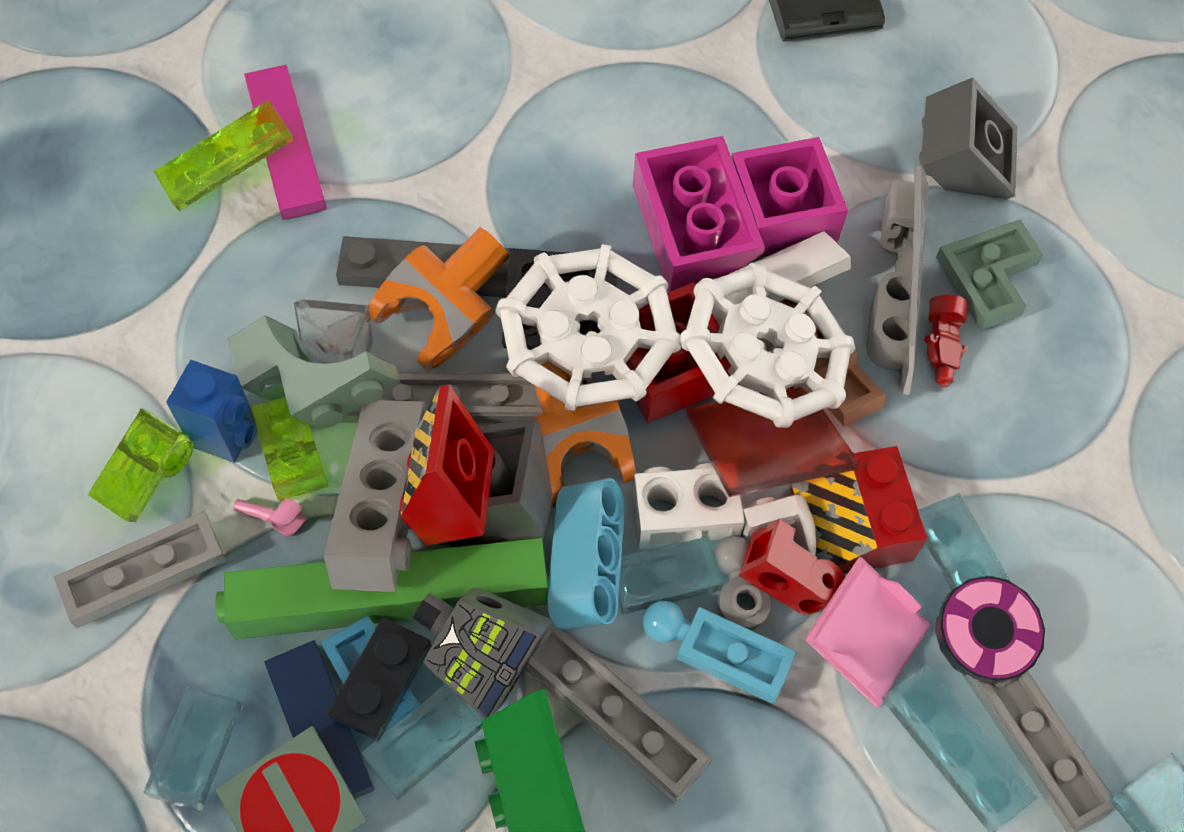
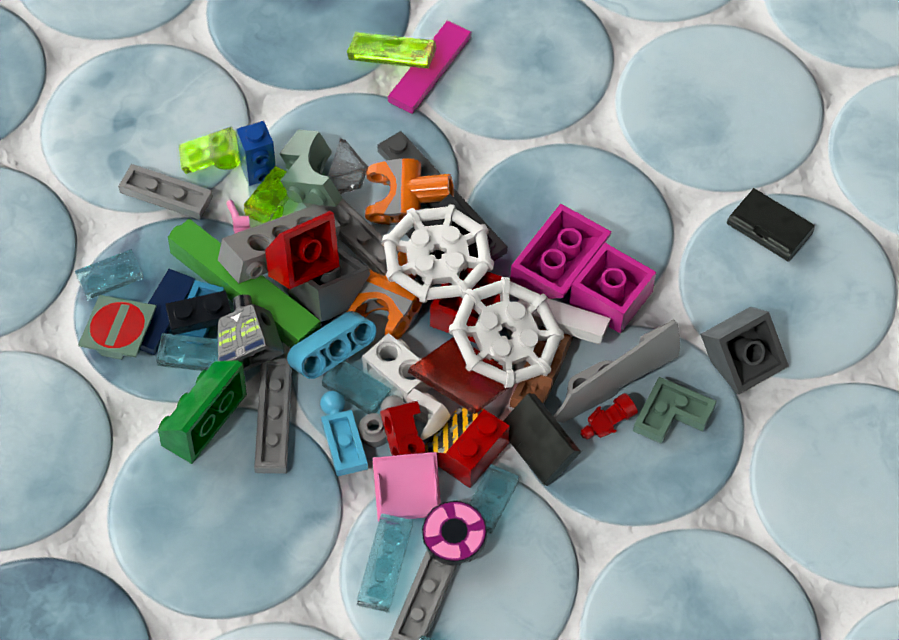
camera: 50 degrees right, 5 degrees down
(930, 428) = (540, 439): none -> pearl dark grey piece

